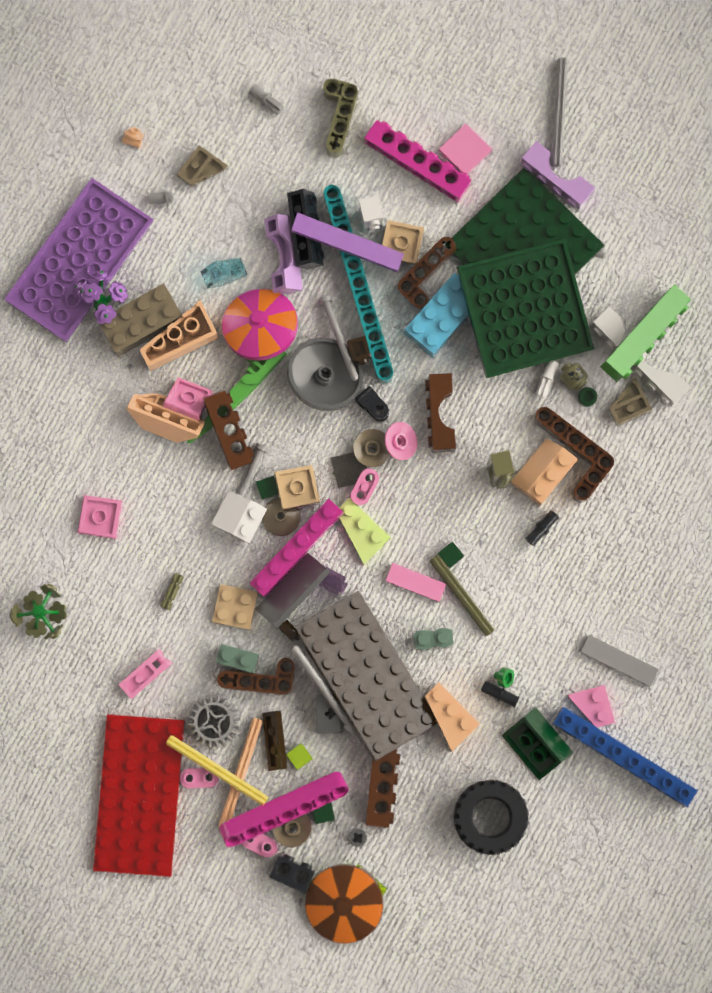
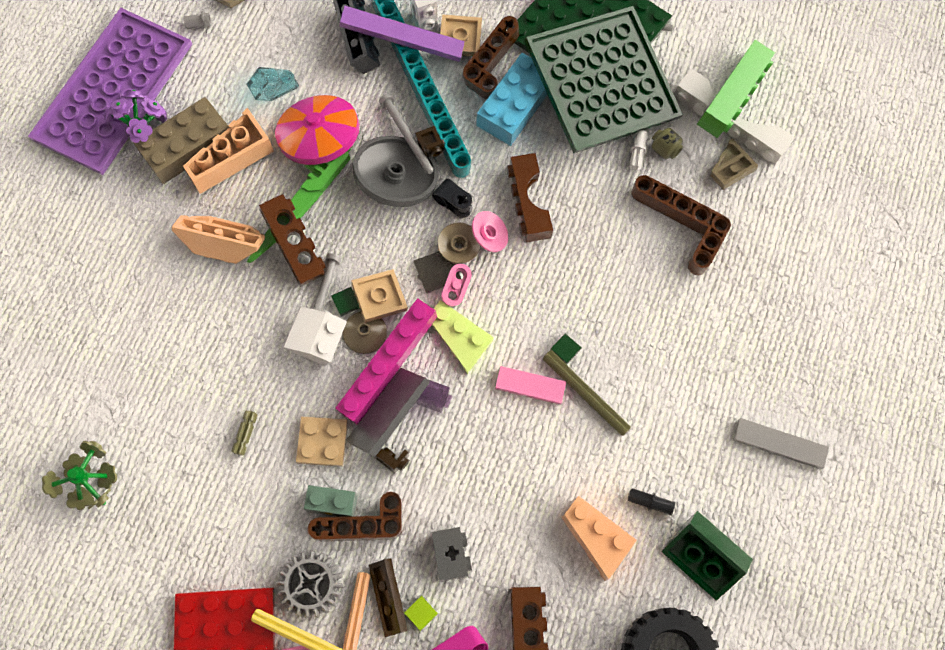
camera: 15 degrees left, 10 degrees down
(99, 517) = (152, 358): bright pink tile -> none
(144, 674) = (218, 537): bright pink plate -> none
(187, 398) = (241, 215): bright pink tile -> none
(288, 276) = (342, 79): lavender arch -> none
(325, 691) = (477, 564): light grey bar -> none
(366, 675) = (490, 502): plate -> none
(426, 639) = (568, 446): sand green brick -> none
(500, 469) = (610, 239): olive brick -> none
(504, 677) = (653, 480): green tile -> none
(542, 528) = (663, 306): black pin -> none
(544, 471) = (654, 245): light nougat slope -> none
(587, 396) = (684, 164): dark green tile -> none
(594, 705) = (764, 500): bright pink wing -> none
(624, 757) = (816, 557): blue brick -> none

